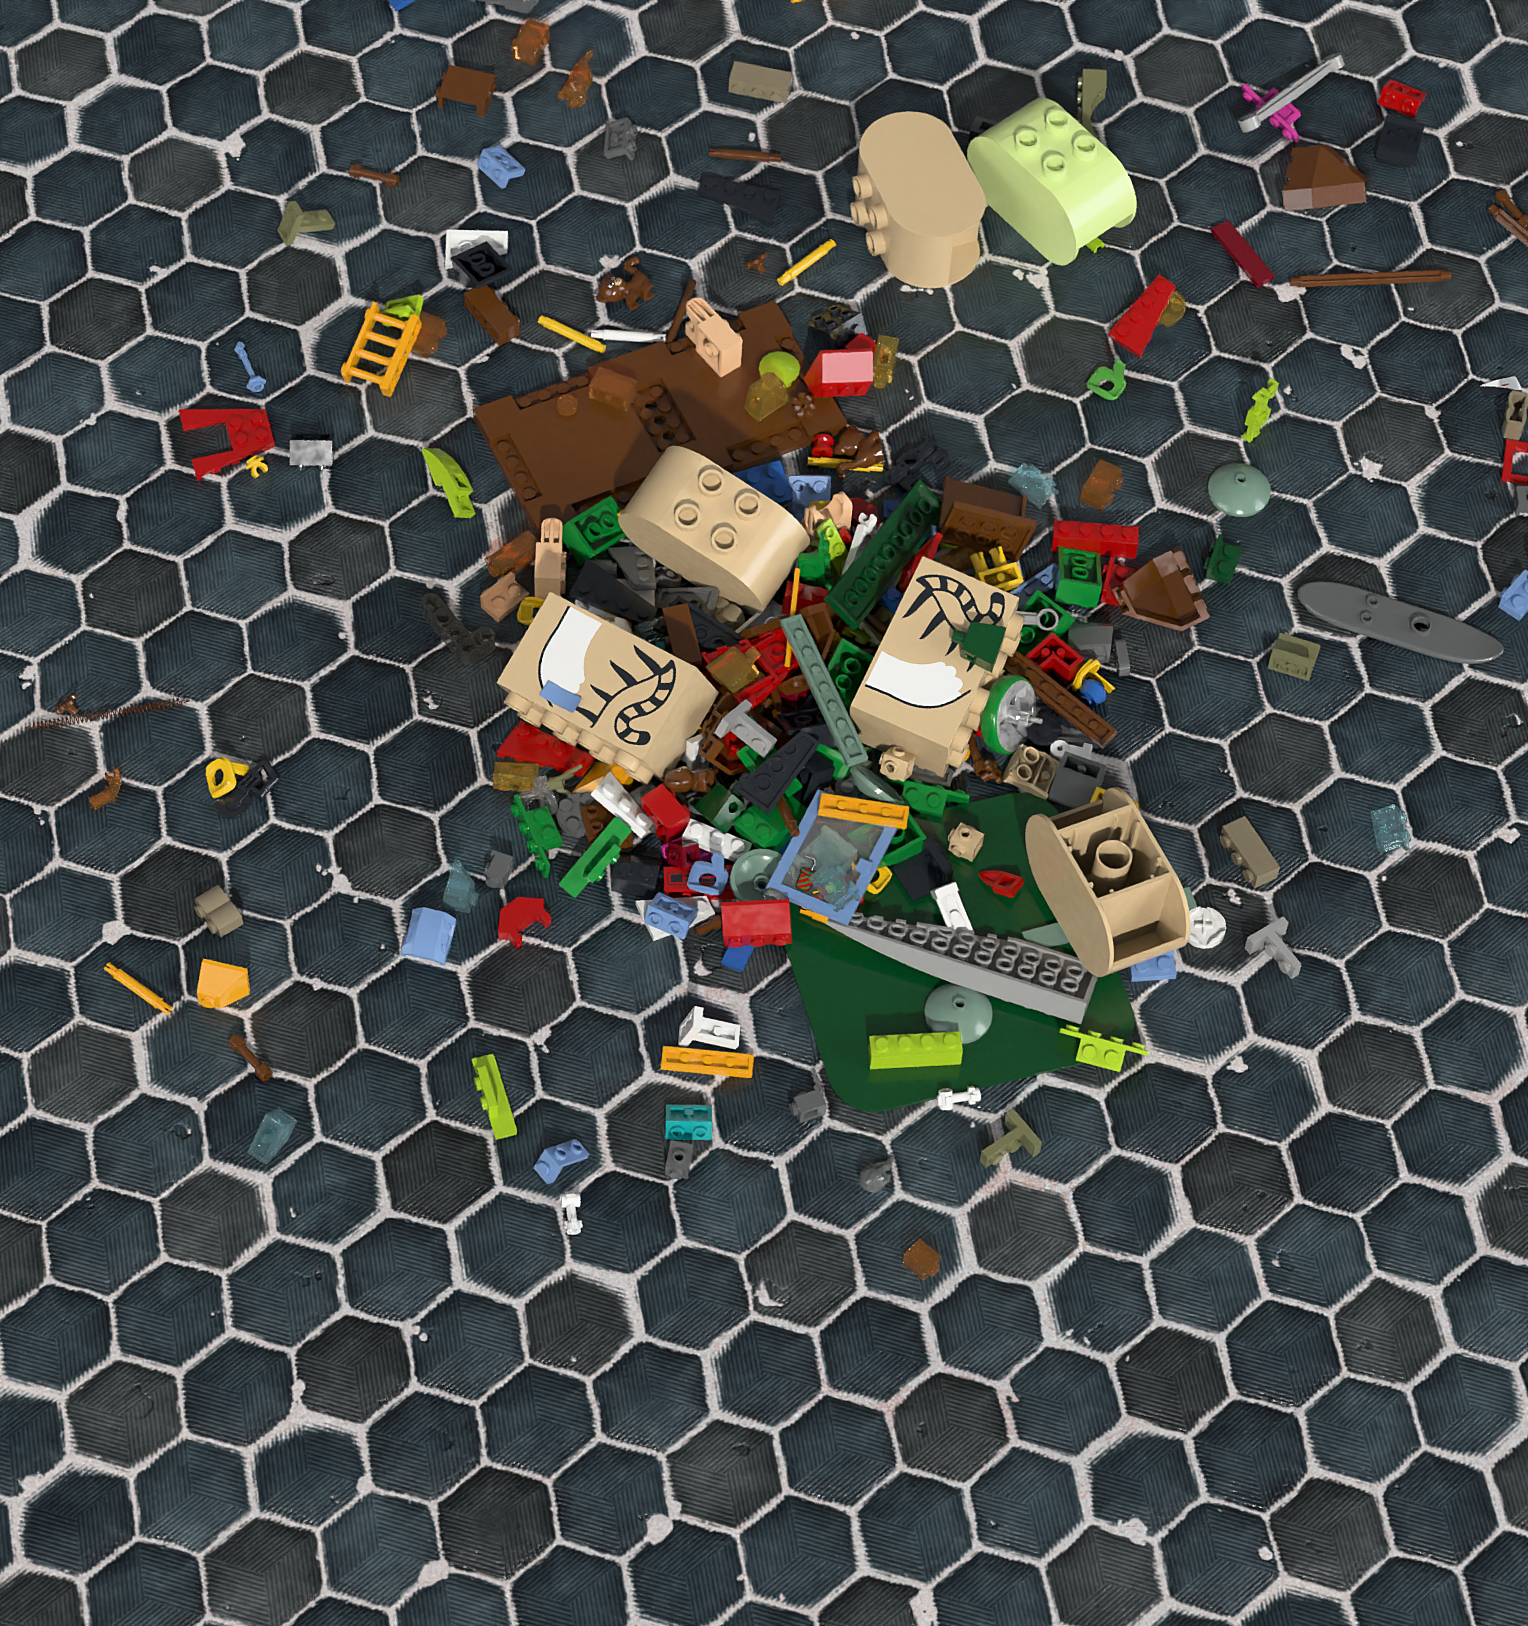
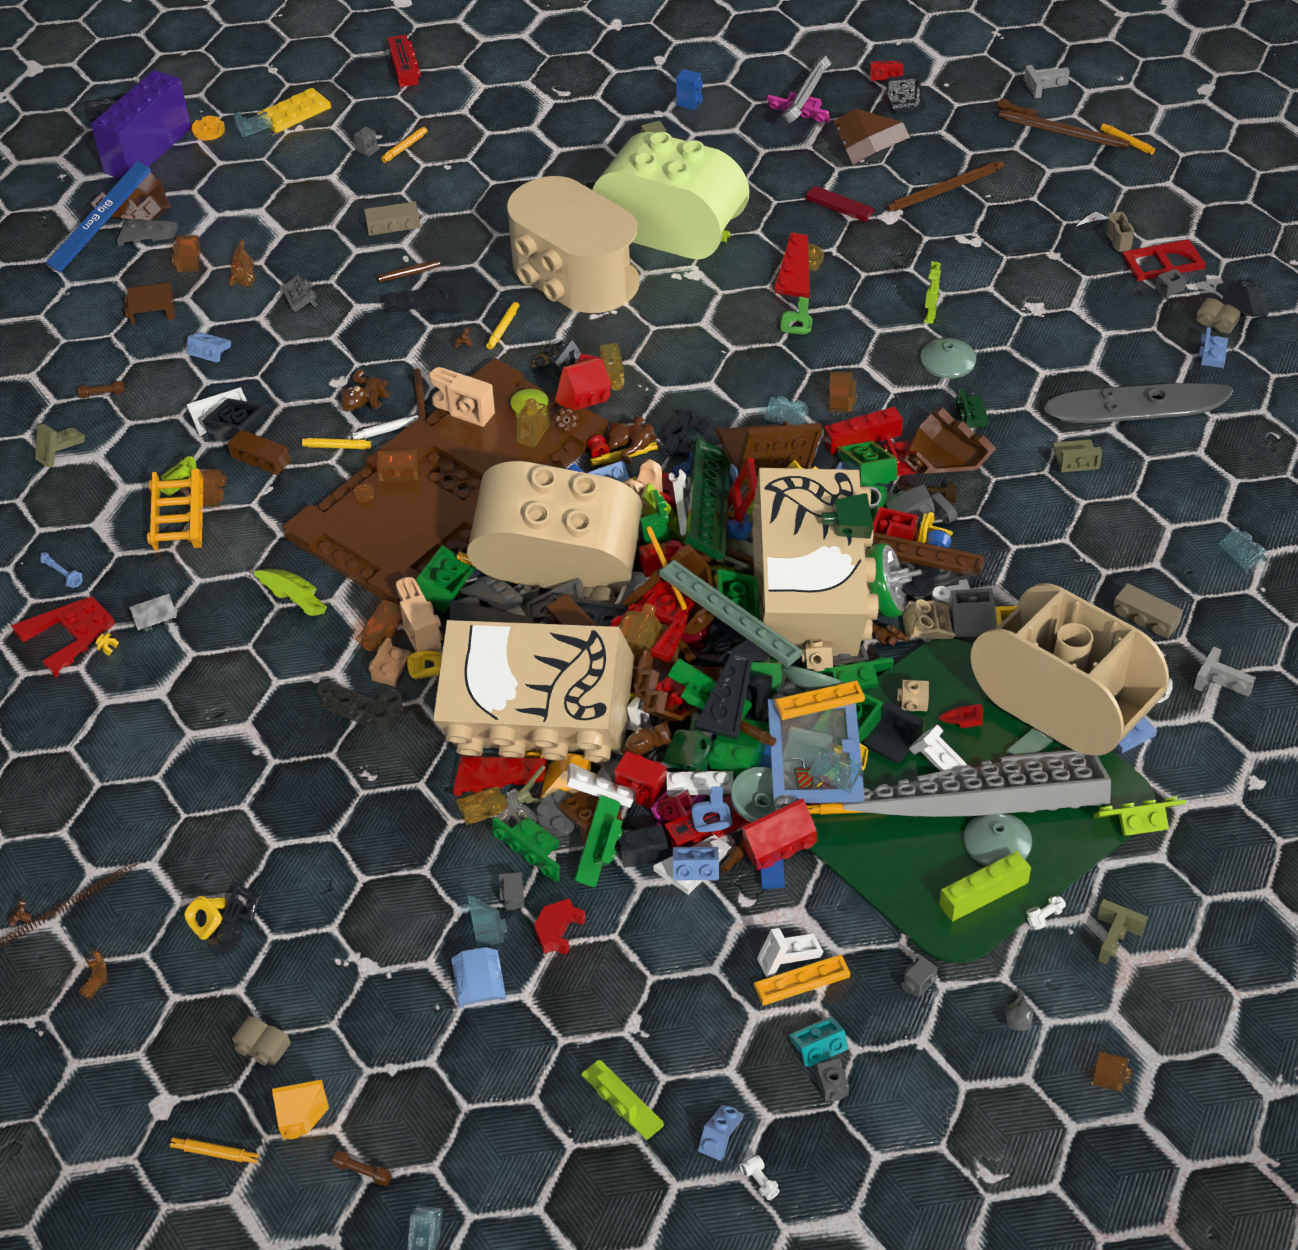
camera: 20 degrees left, 10 degrees down
(560, 697) = (502, 707): medium blue sticker -> none
(746, 729) = (683, 672): light grey bracket -> none
(1141, 642) = (949, 492): none -> dark brown piece
(1162, 41) = (689, 89): none -> blue brick

